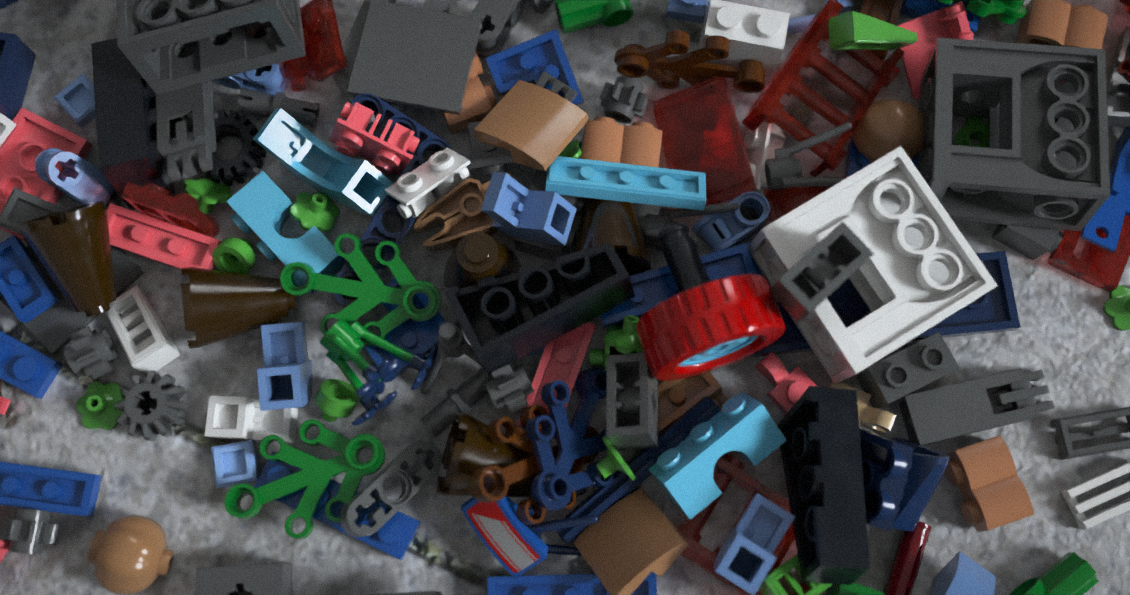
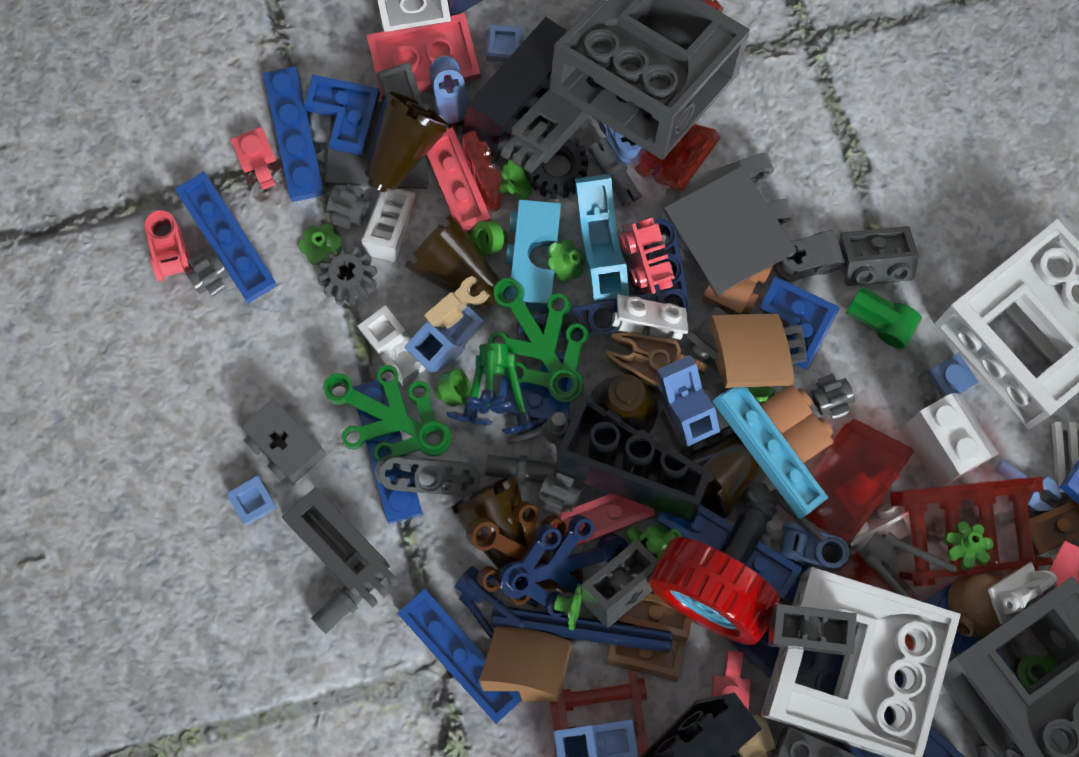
camera: 50 degrees right, 0 degrees up
(130, 554) = (245, 349): medium nougat plant -> none
(235, 464) = (356, 361): light blue tile -> none
(264, 342) = (450, 308): none -> tan plate
(505, 535) = (460, 575): slope -> none
(638, 61) = (866, 382): reddish brown plant -> none
(688, 469) = (667, 670): medium azure arch -> none
(839, 98) = (968, 545): none -> bright green plant
(863, 32) = (1031, 518): bright green slope -> none
(912, 90) = (1020, 591): none -> white hinge

